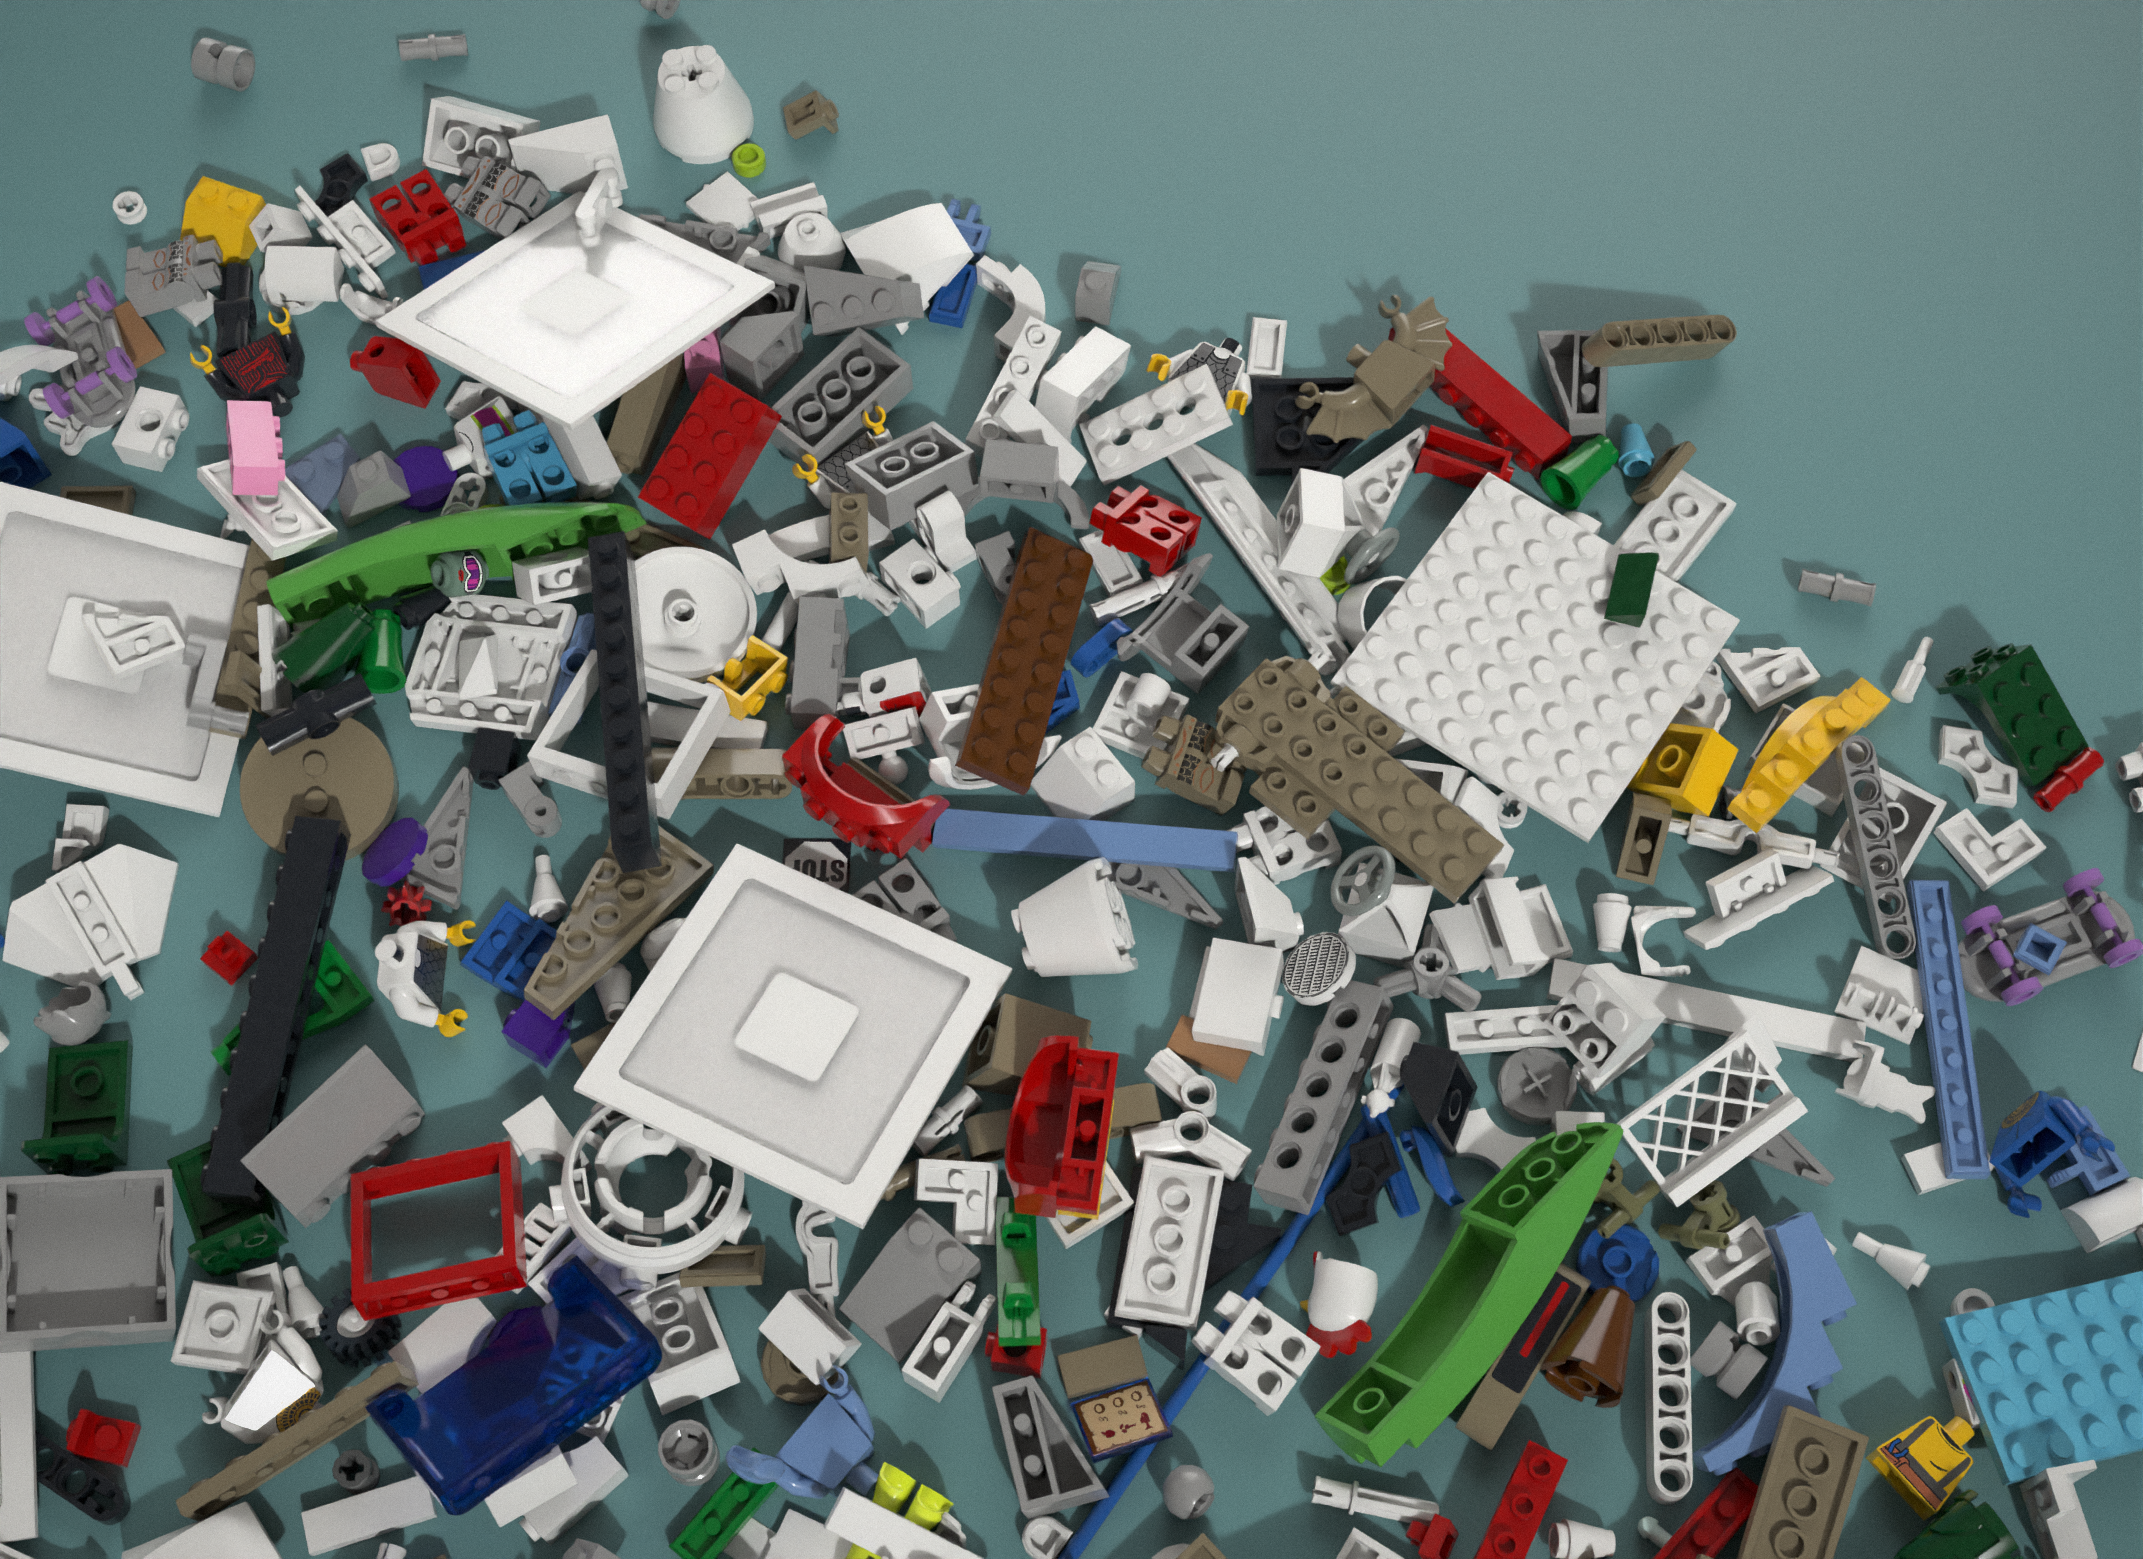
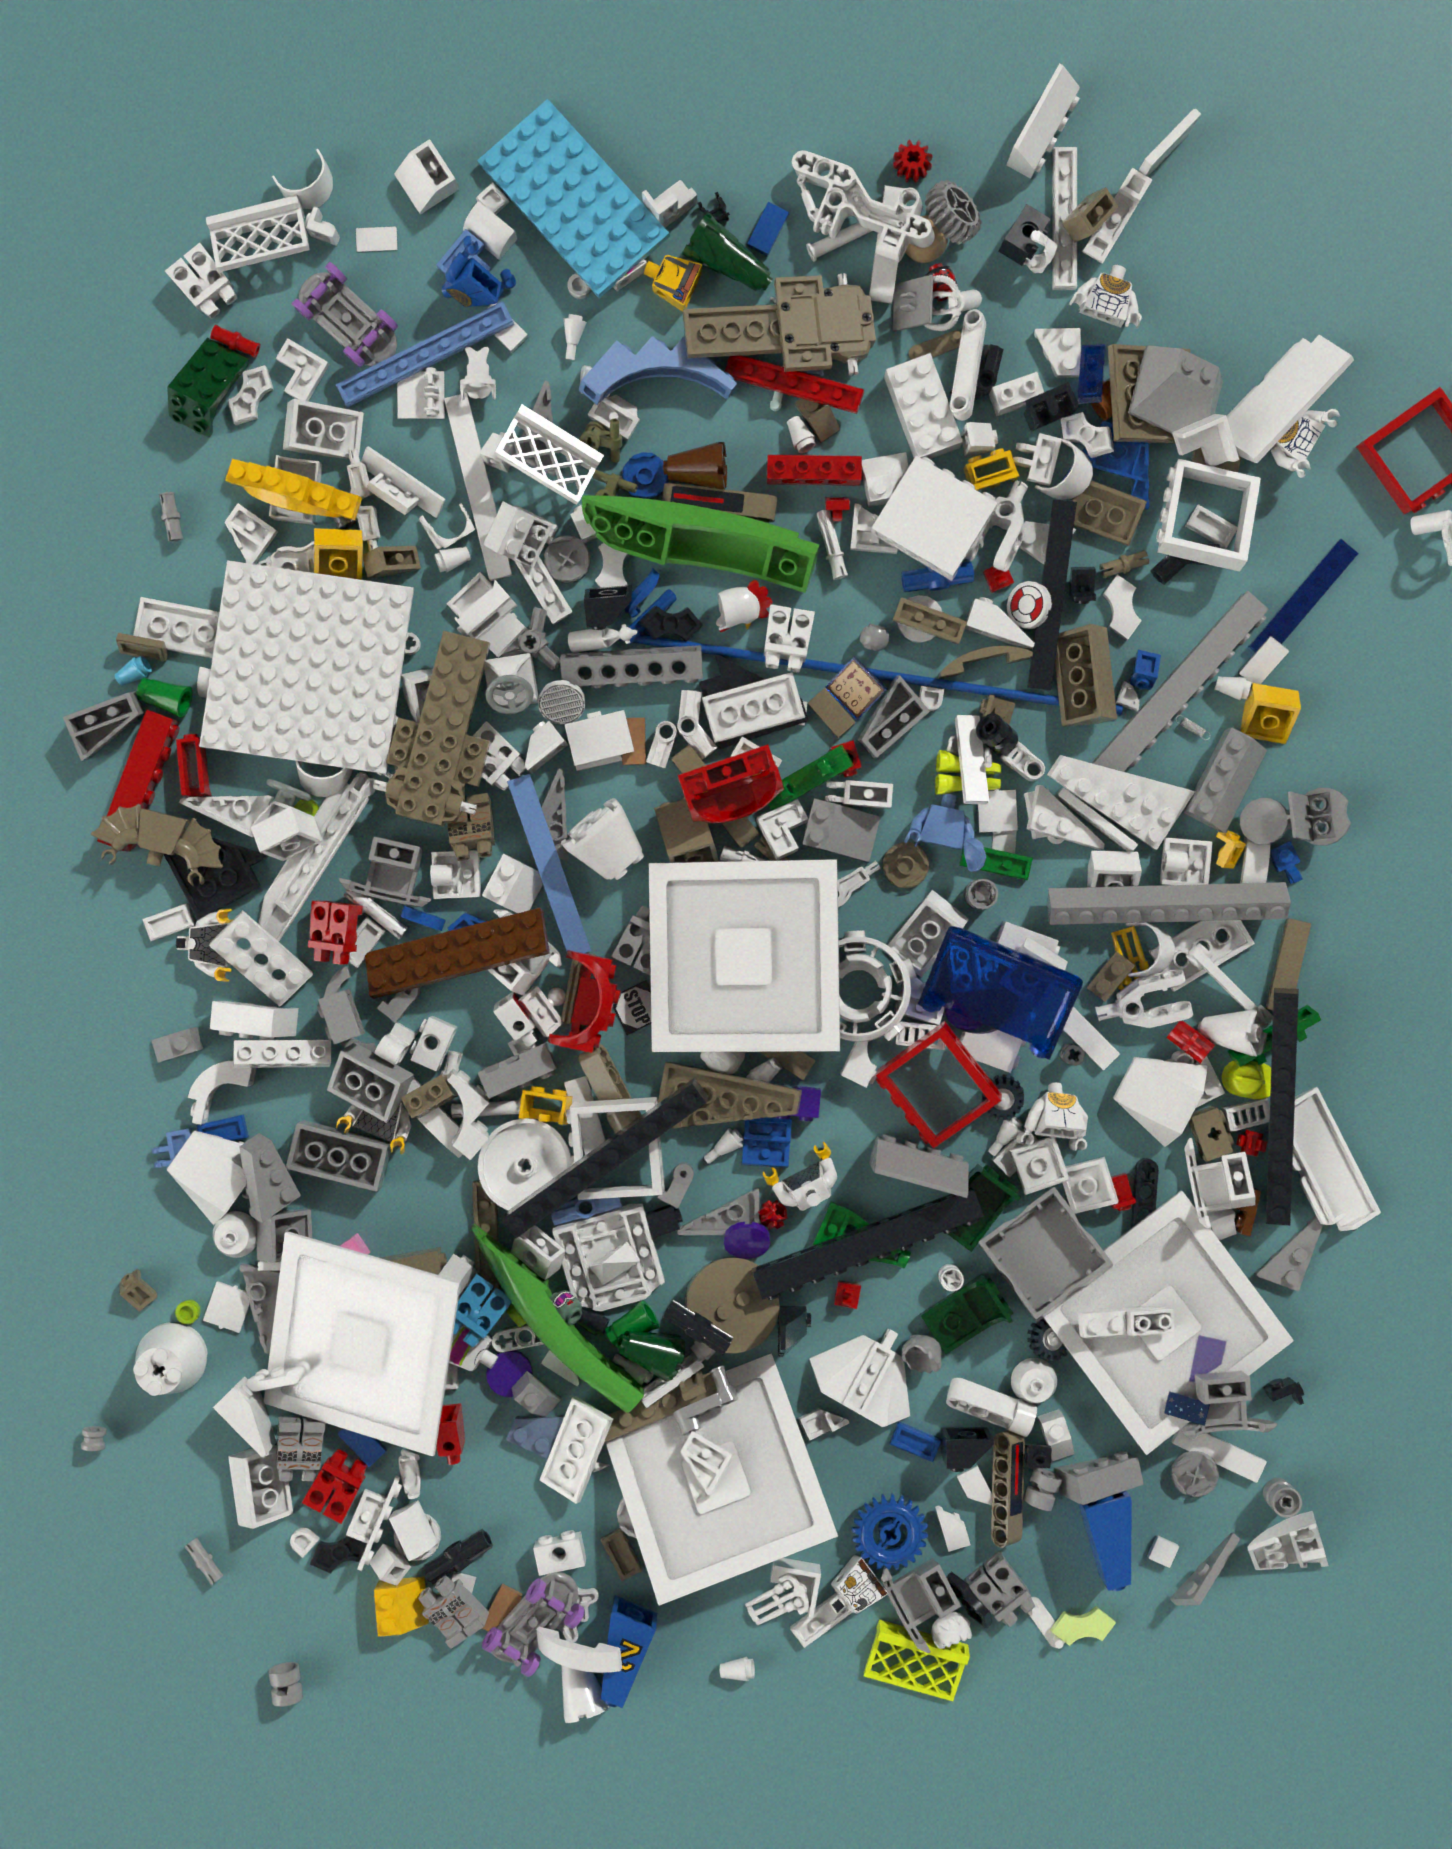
camera: 115 degrees left, 25 degrees up
(126, 199) = (415, 1681): white bush -> none
(141, 1391) = (1089, 1186): none -> white plate
(145, 1105) = (954, 1279): none -> white wheel
(234, 841) = (791, 1327): none -> black wedge
(254, 448) = (545, 1480): bright pink brick -> none
(259, 370) = (491, 1513): black torso -> none
(288, 1447) = (1068, 1084): dark tan plate -> none
(710, 456) = (418, 1206): red brick -> none
(727, 1267) = (877, 928): dark tan tile -> none
(761, 351) = (329, 1220): light grey slope -> none
(778, 209) = (213, 1264): white panel -> none
(809, 1335) = (894, 865): white brick -> none
(1029, 426) = (306, 1021): white tile -> none
(1168, 1343) = (803, 682): black slope -> none
(1482, 807) = (423, 658): white tile -> none
(1631, 588) = (241, 628): dark green slope -> none
(1659, 340) = (54, 684): dark tan beam -> none
(1659, 1415) = (714, 412): white beam -> none
(1727, 1360) = (672, 398): light grey wheel -> none
(1757, 1314) = (640, 392): white brick -> none
(1882, 846) = (335, 425): light grey beam -> none
(1912, 673) = (207, 452): white axle -> none
(2039, 948) = (358, 319): medium blue slope -> none

